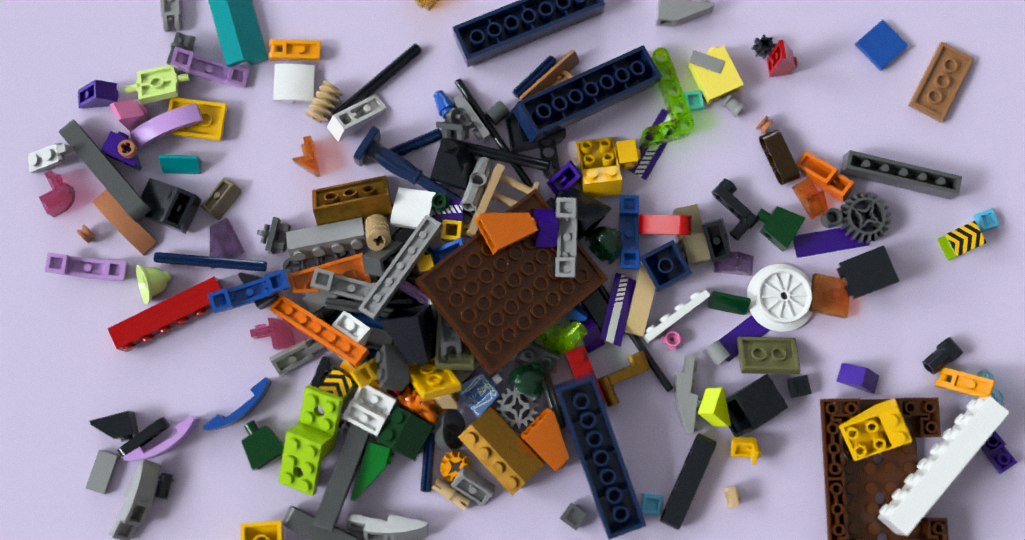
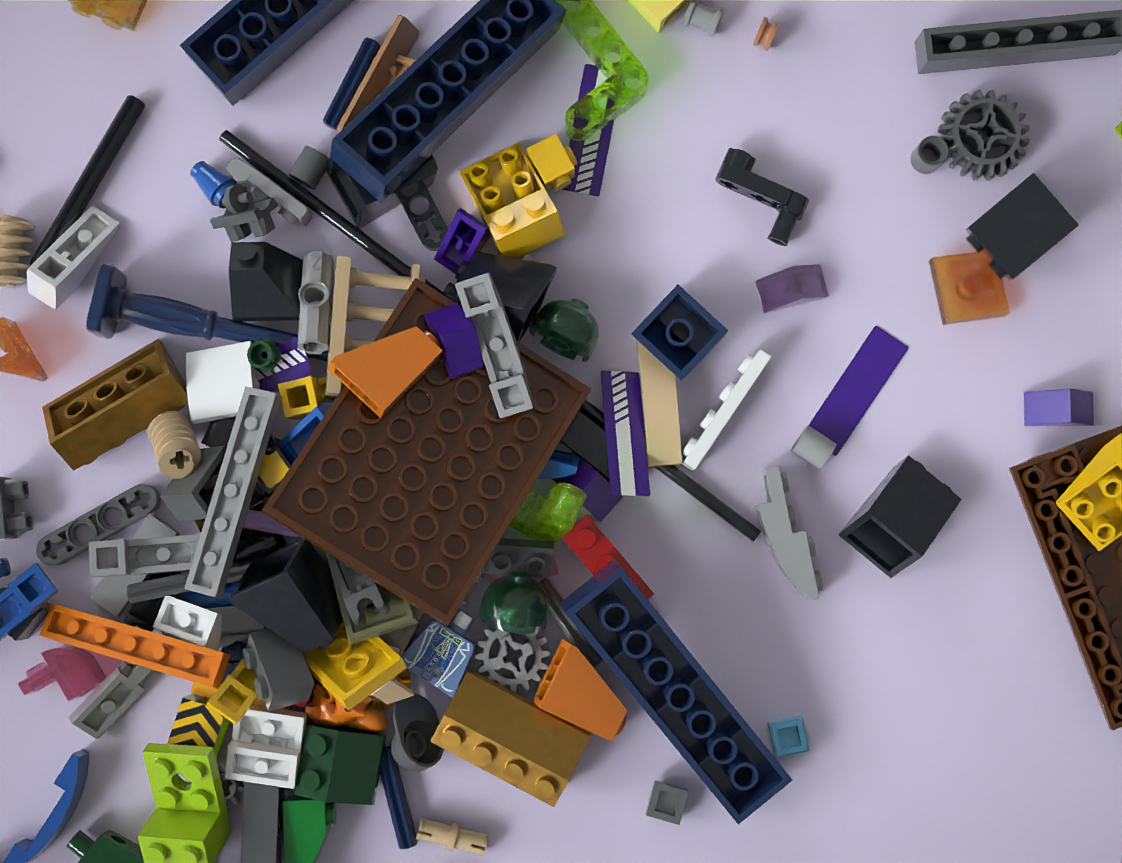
camera: 15 degrees left, 5 degrees up
(323, 368) = (165, 703): black hinge -> none
(326, 239) = (92, 485): light grey brick -> none
(348, 267) = (145, 520): orange wing -> none
(417, 142) = (191, 265): dark blue axle -> none
(455, 457) = (460, 784): light orange gear -> none
(473, 486) = (485, 810): light grey slope -> none
(505, 156) = (348, 237): black axle -> none
(629, 231) = (600, 294): blue slope -> none
(638, 365) = (689, 515): pearl gold beam -> none
(665, 224) = (656, 263): beam -> none
(672, 334) = (728, 441): bright pink plate -> none
(688, 481) = (836, 678): black beam -> none
(693, 246) = (704, 264): dark tan brick -> none
(694, 100) = (635, 32): tile -> none
(714, 407) = (839, 541): neon yellow slope -> none
(717, 239) = (751, 257): black slope -> none
(728, 303) = (805, 357): dark green slope -> none
(732, 496) = (917, 678): tan plate -> none
(745, 448) = (913, 589): yellow bracket -> none
(766, 300) = (865, 332): white piece -> none
(768, 355) = (900, 423): olive tile -> none
(779, 157) = (809, 80): dark brown beam -> none
(780, 226) = (848, 198): dark green torso -> none
(799, 386) = (967, 456): black plate -> none
(812, 200) = (886, 135): clear orange slope -> none
(825, 176) = (895, 87): orange slope -> none
(825, 242) = (930, 199): dark purple sticker -> none

